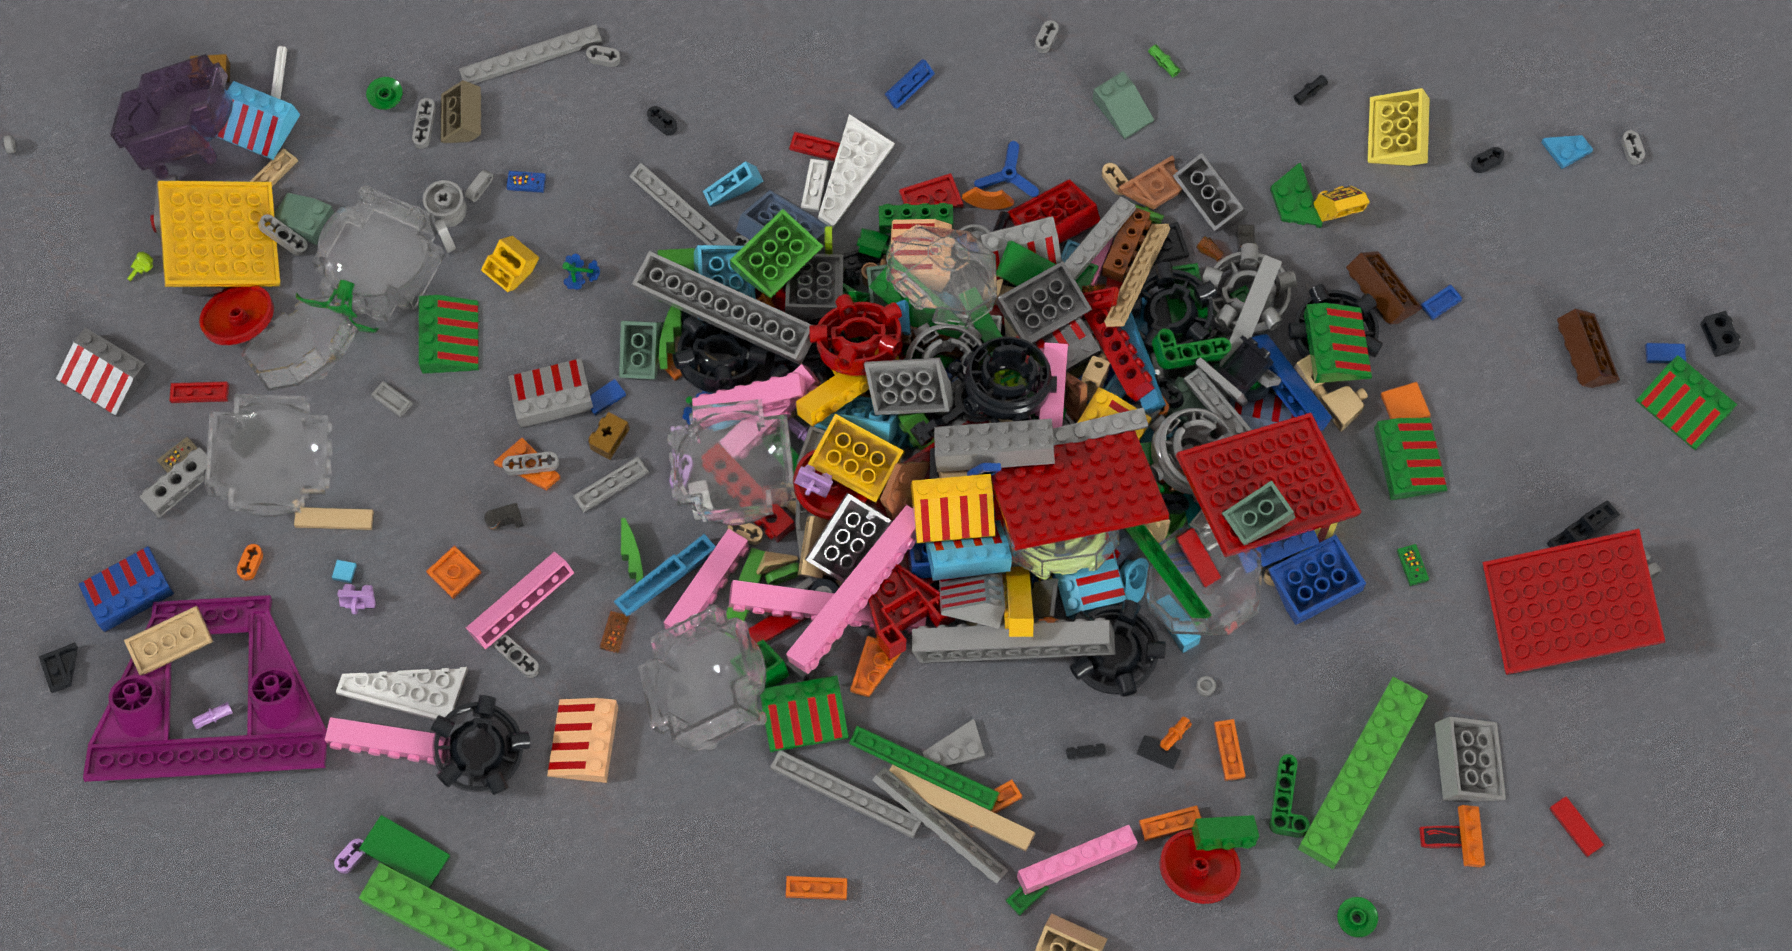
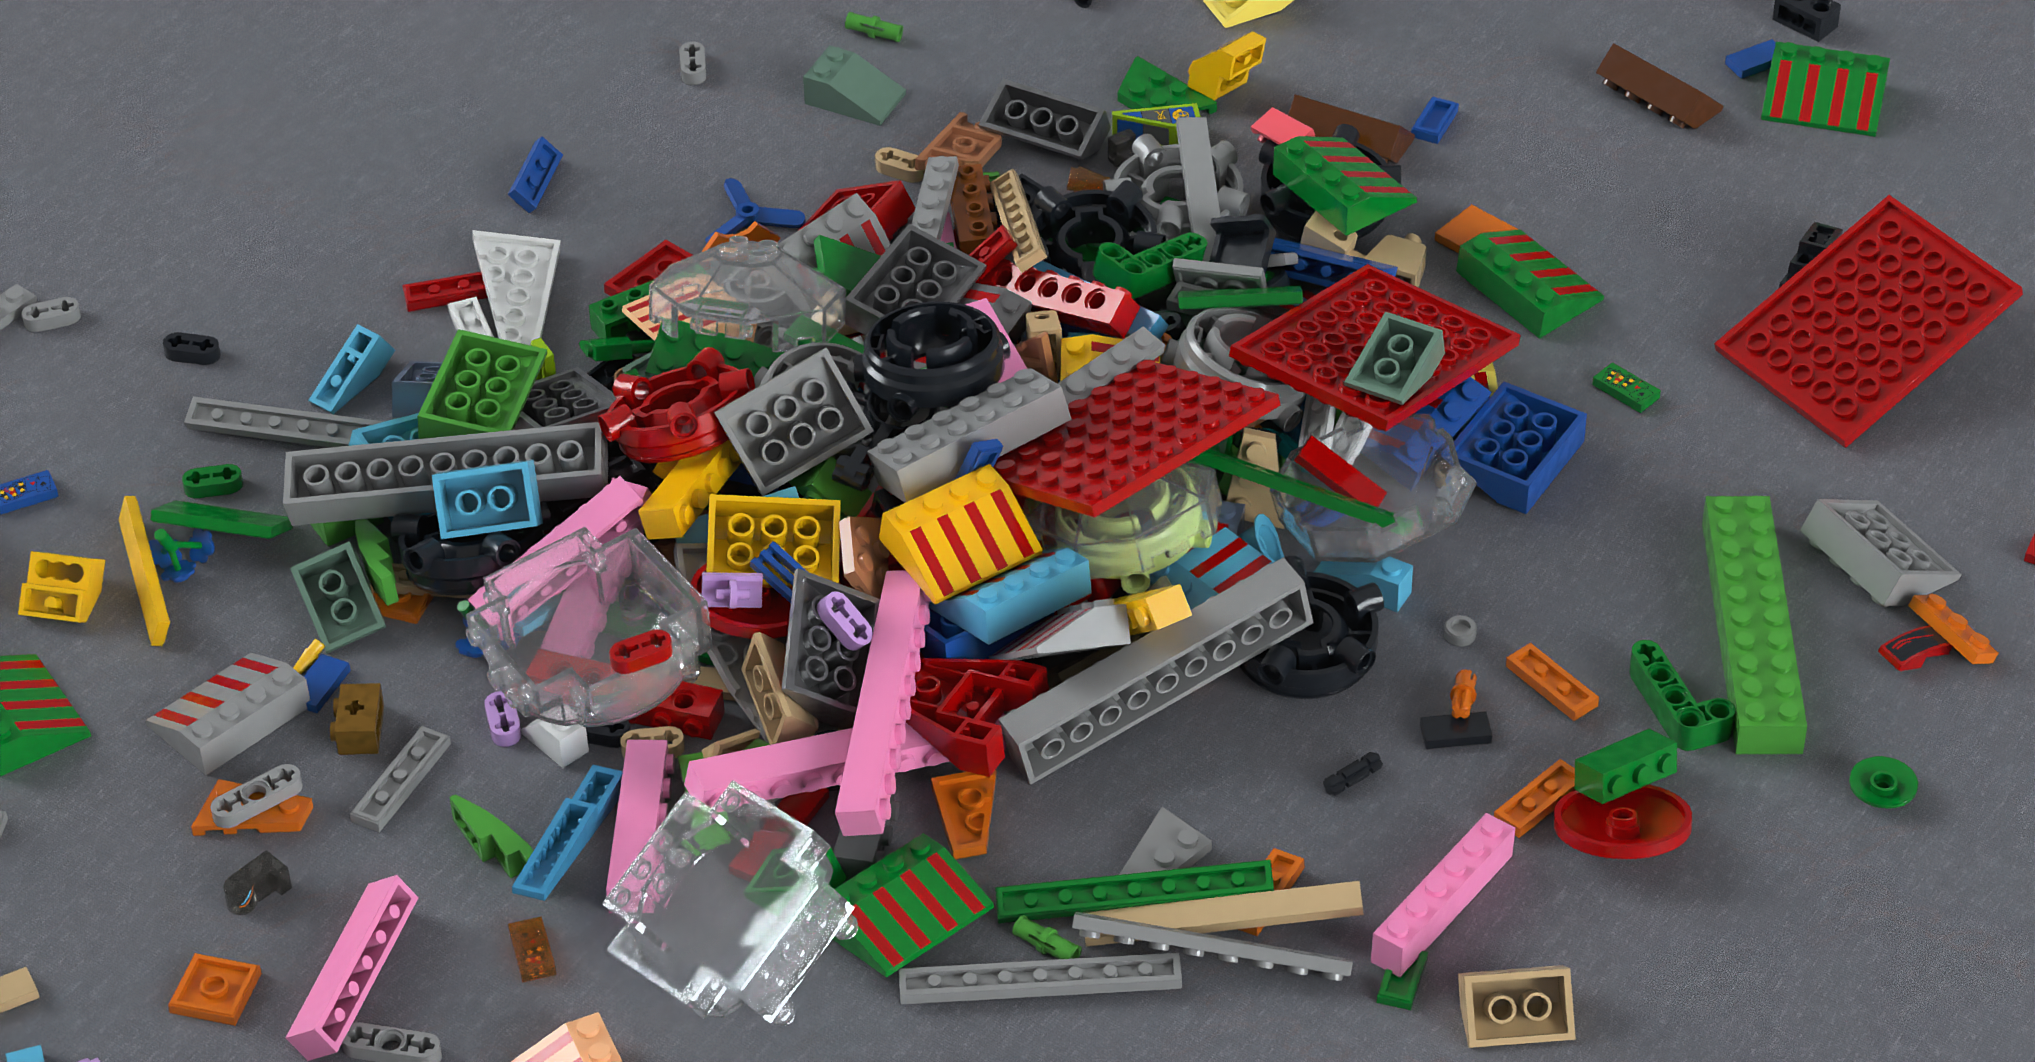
camera: 30 degrees left, 25 degrees down
(556, 273) = (144, 571): none -> yellow tile
(605, 378) = (309, 656): none -> yellow helmet
(608, 258) = (221, 519): none -> green tile
(623, 225) = (212, 481): none -> green beam
(729, 344) = (487, 499): none -> medium azure brick
(741, 500) = (640, 651): none -> red beam
(843, 489) = (767, 556): none -> blue tile
(857, 533) = (844, 621): none -> lavender beam
(864, 771) = (1045, 939): none -> bright green pin
(1217, 405) = (1240, 297): none -> green tile
(1280, 229) = (1154, 121): none -> slope
(1329, 285) = (1279, 127): none -> coral hinge

